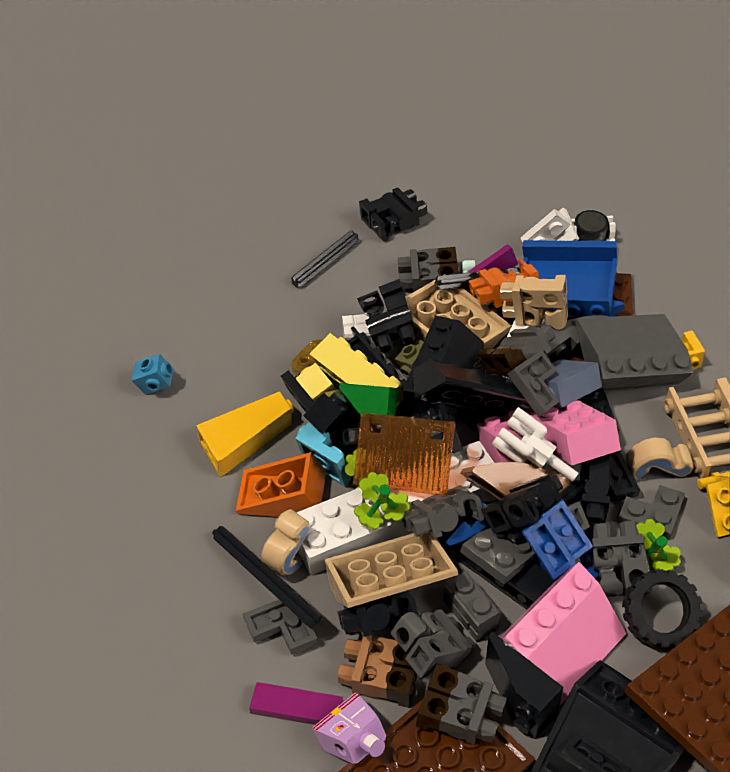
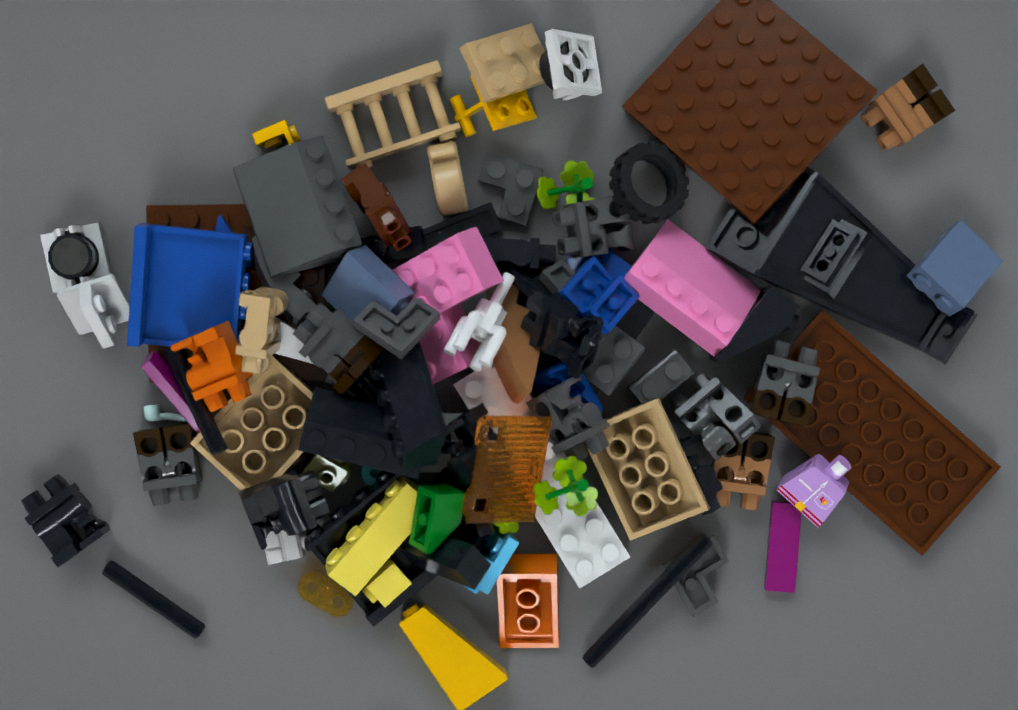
camera: 95 degrees left, 40 degrees up
(282, 545) = (618, 585): tan animal -> none
(631, 392) = (379, 206): none -> reddish brown hips

